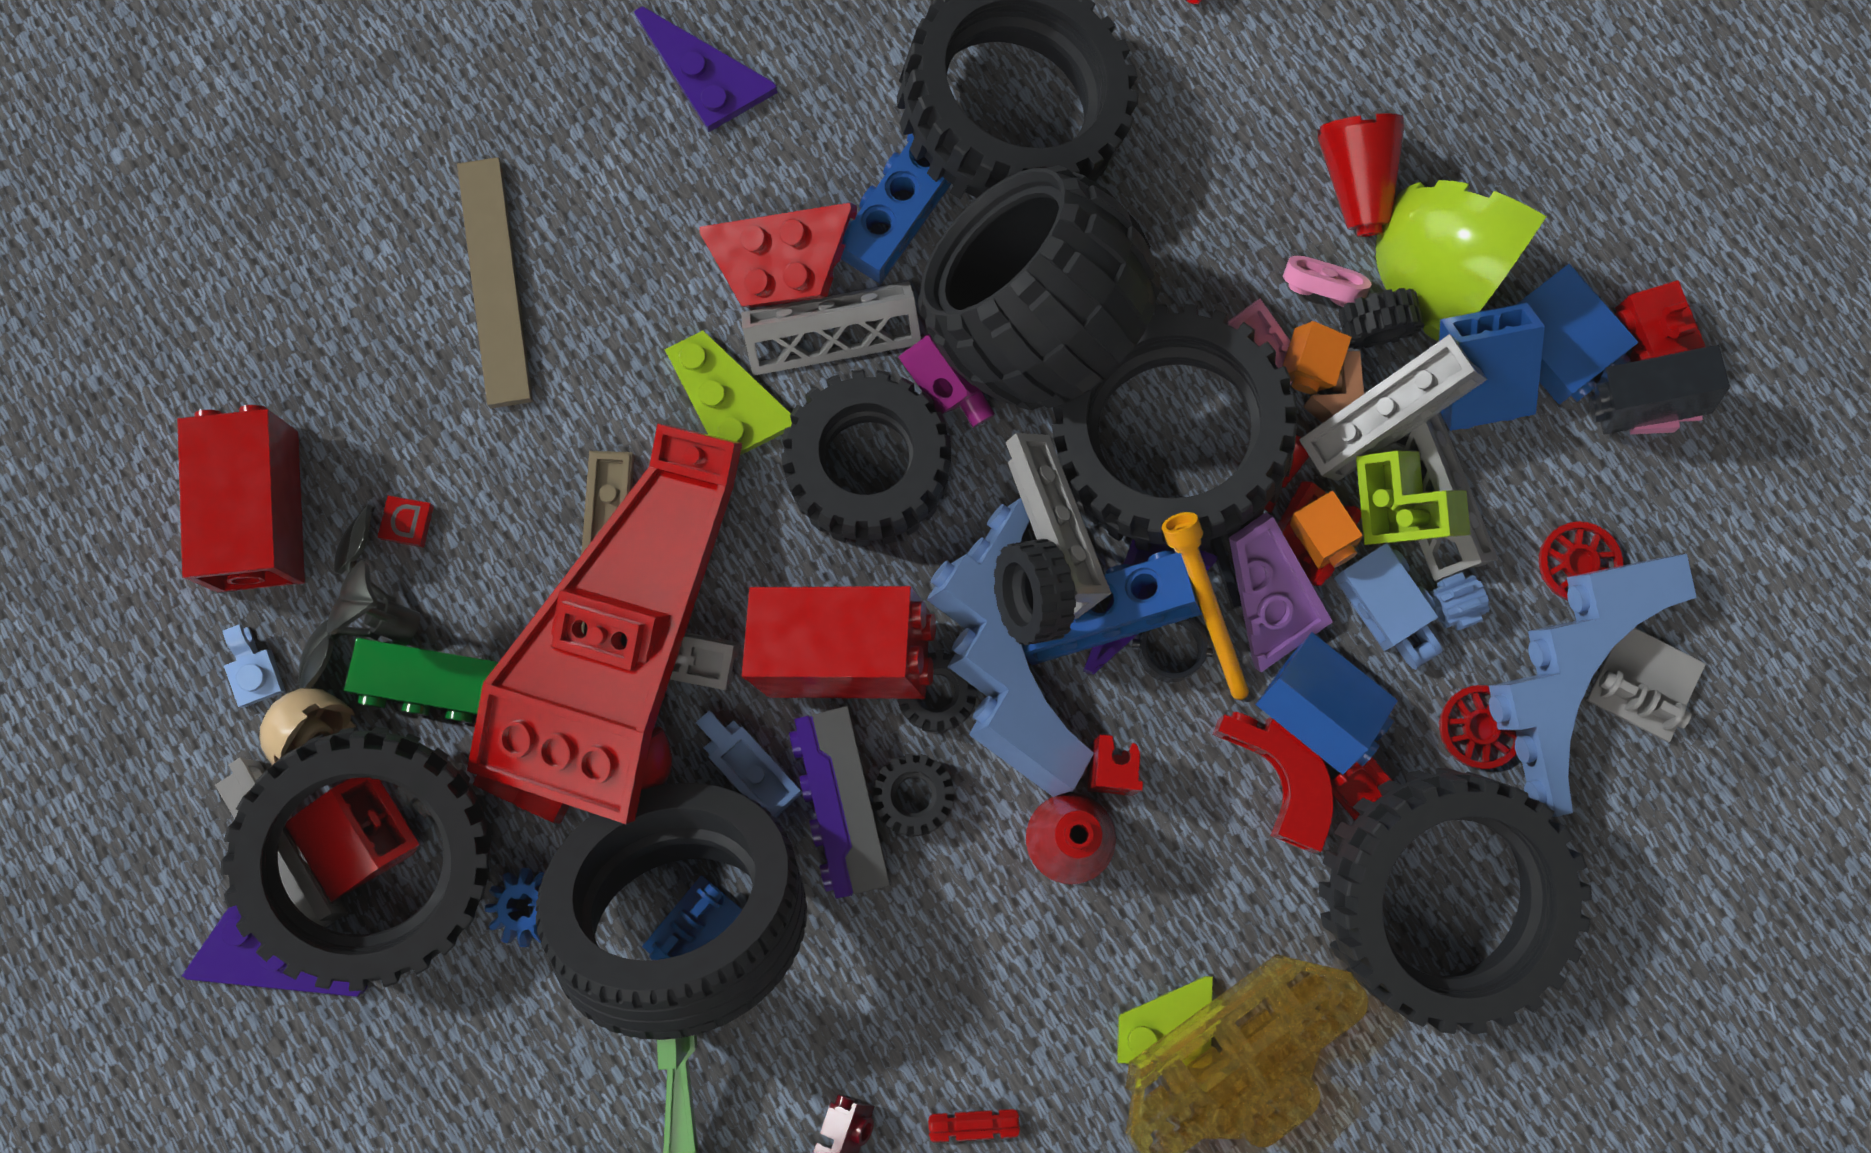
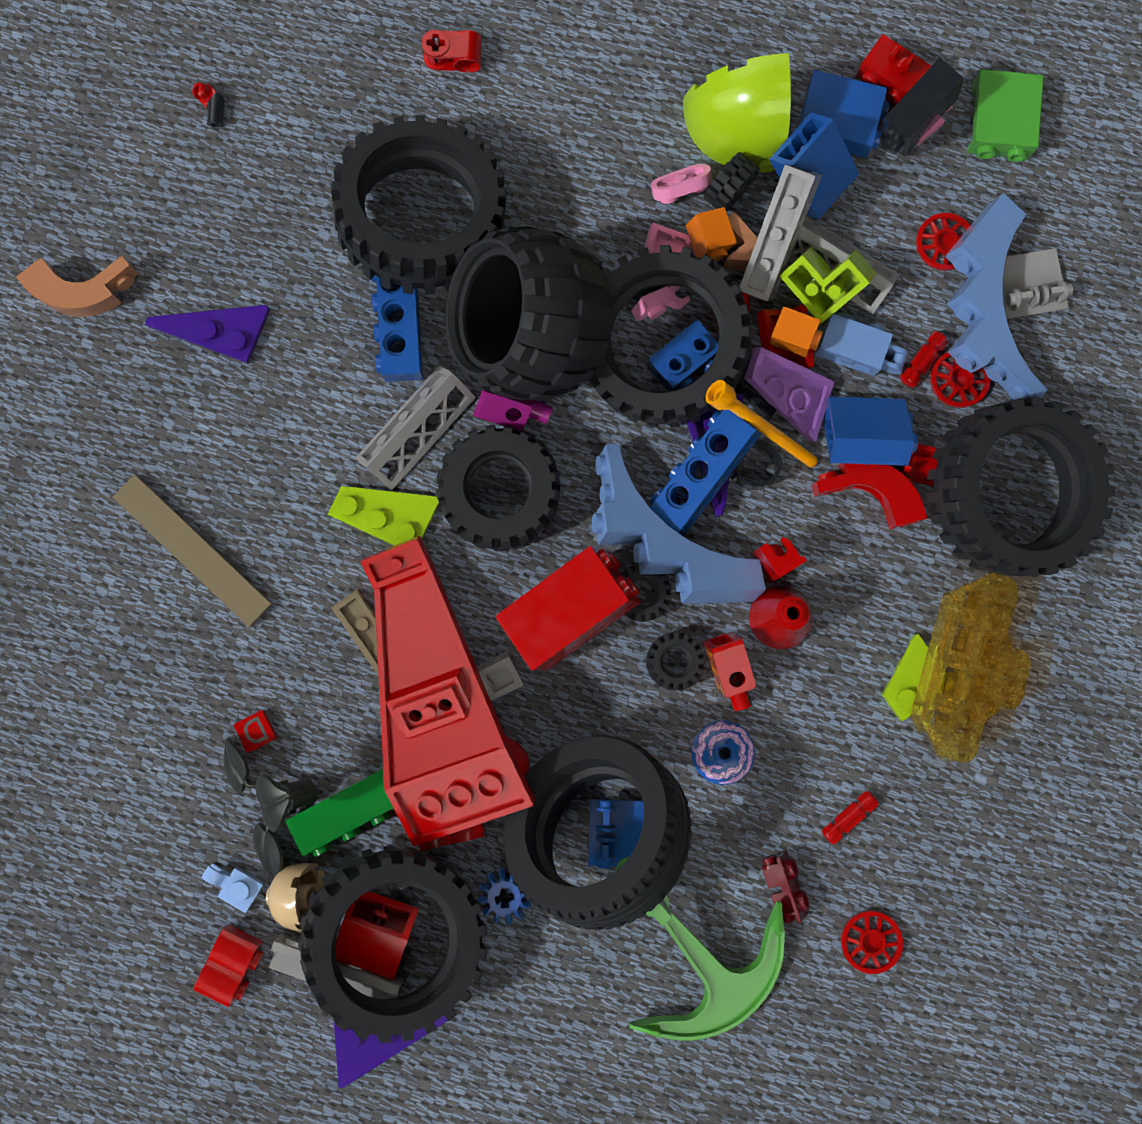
camera: 35 degrees left, 5 degrees up
(175, 749) = (228, 966): none -> red brick
(240, 500) = (149, 794): red brick -> none
(748, 765) = (568, 717): medium blue hinge -> none
(780, 254) = (352, 406): red wing -> none
(841, 803) = (639, 697): piece -> none
(912, 930) = (706, 749): none -> dish
(973, 833) = (725, 656): none -> red torso
(1034, 591) = (669, 481): black tyre -> none
(1056, 514) = (641, 444): light grey fence -> none
(1181, 466) = (684, 357): none -> blue brick
(1195, 386) = (654, 303): none -> bright pink plate
(1364, 168) = (654, 99): red cone -> none
(1455, 674) = (923, 359): none -> red axle
(1460, 601) = (897, 315): medium blue gear -> none
(1757, 472) = (1006, 114): none -> bright green panel

